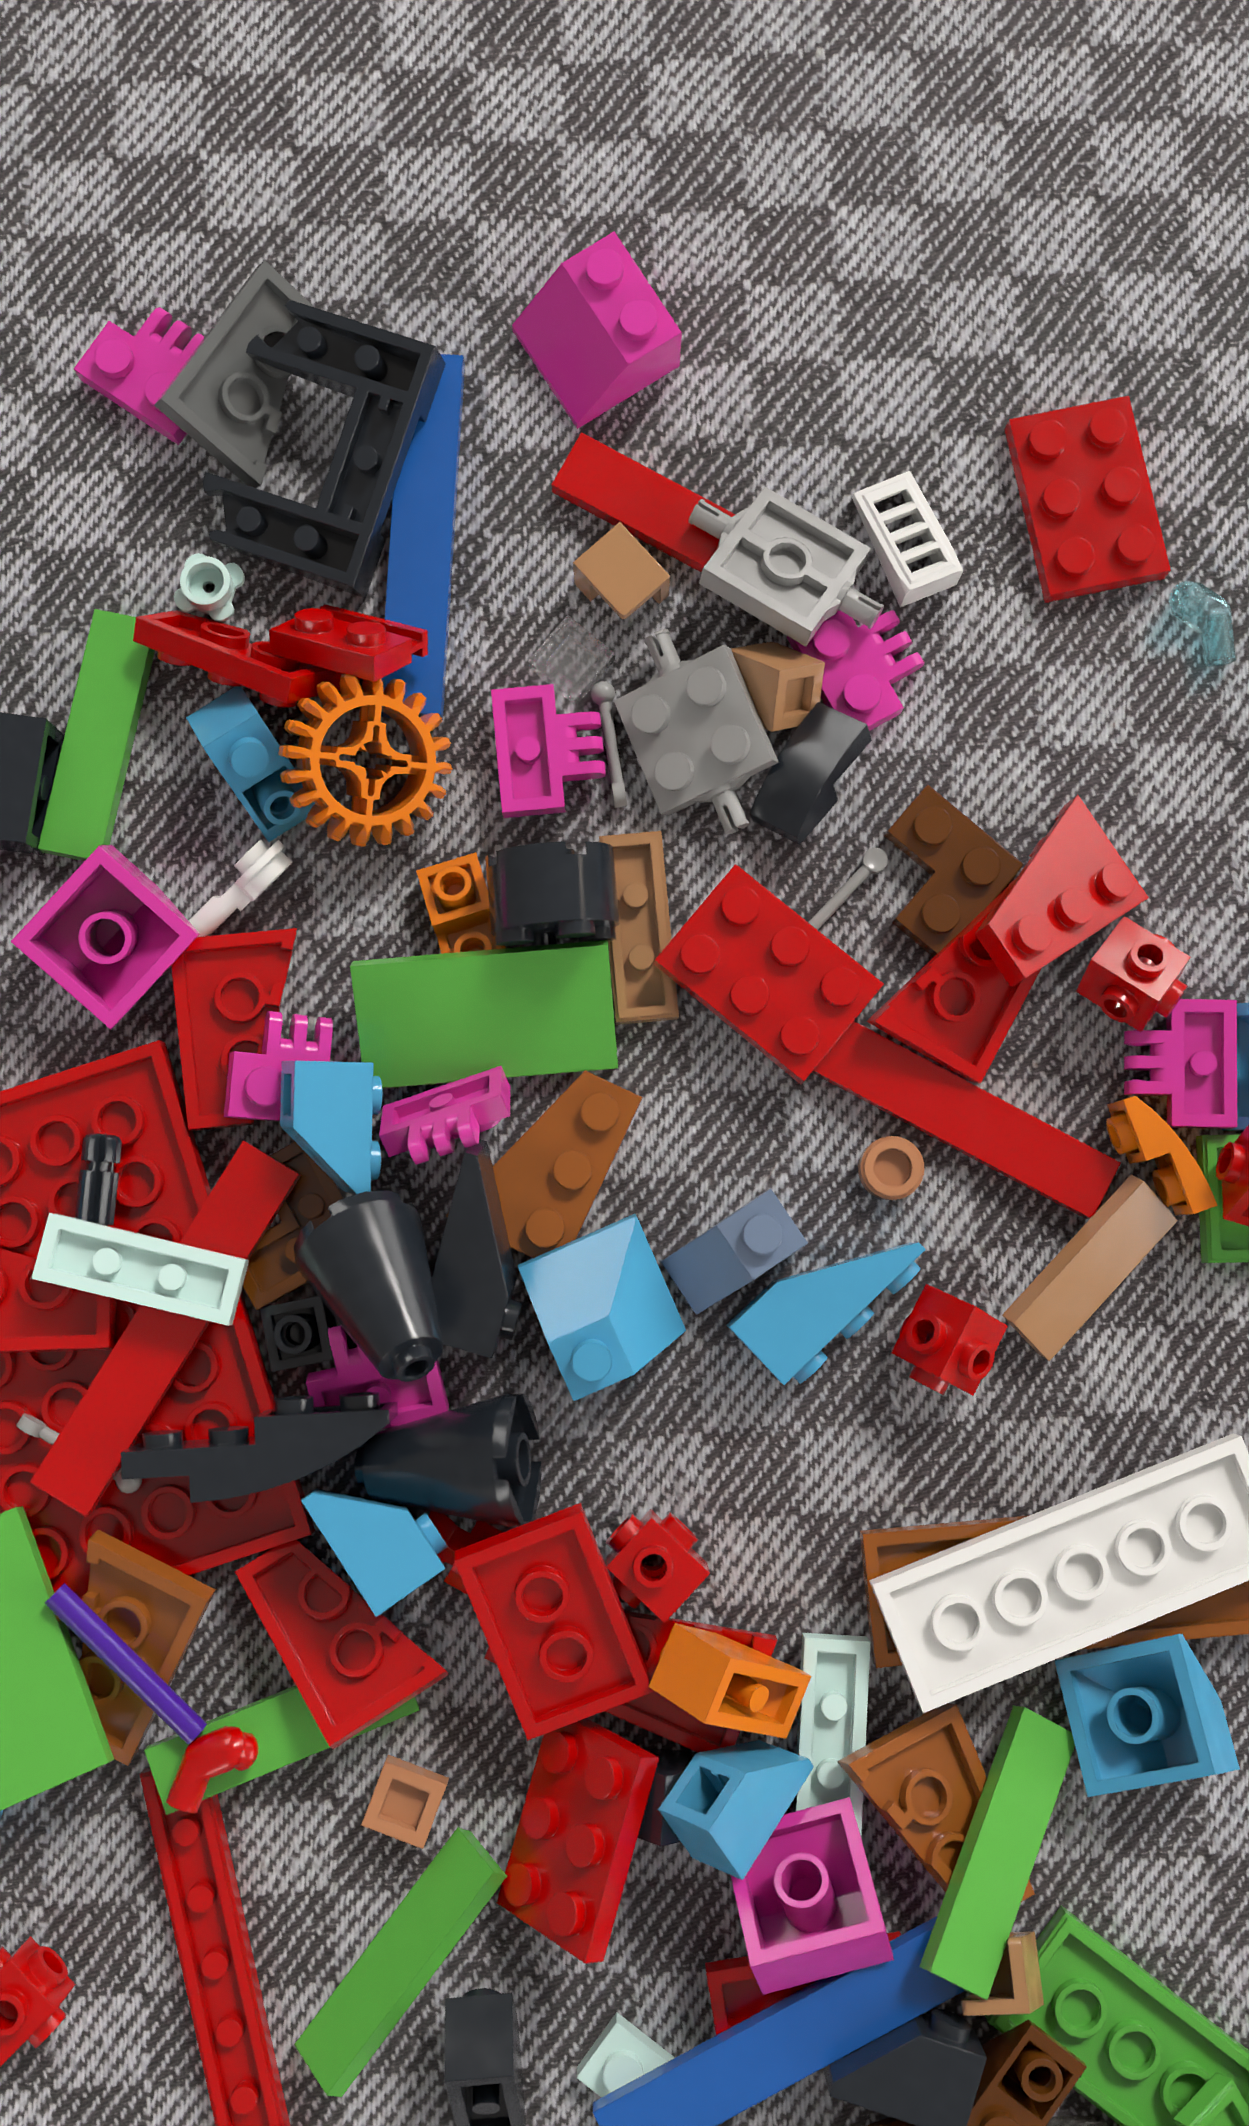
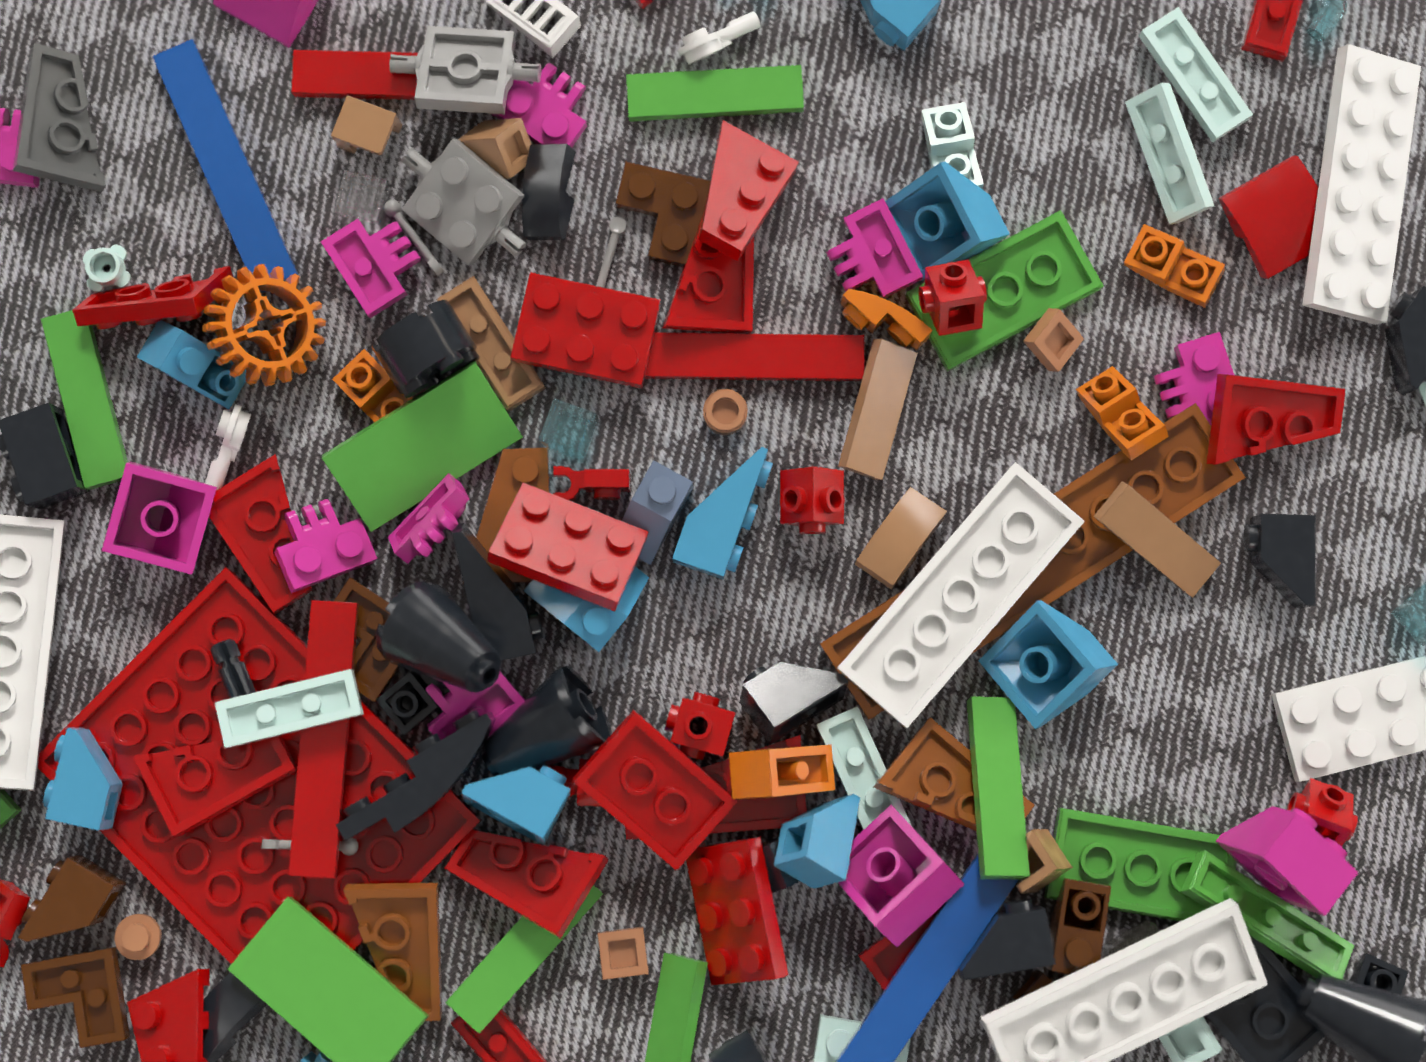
camera: 25 degrees left, 0 degrees up
(126, 1664) = (405, 953): dark purple bar -> none
(209, 1757) = (487, 983): red arm -> none
(330, 1117) = (357, 556): dark azure slope -> none
(348, 642) = (215, 257): red plate -> none
(391, 390) = (160, 84): black wedge -> none
(604, 1245) = (568, 546): none -> plate
(681, 1090) = (569, 430): none -> clear light blue panel
(690, 1181) = (605, 483): none -> red plate
(786, 1583) = (789, 697): none -> slope
(1036, 1451) = (900, 538): none -> medium nougat slope
(1085, 755) = (715, 93): none -> bright green tile
(1100, 686) = (701, 44): none -> white plate
(1135, 975) = (812, 215): red brick -> none

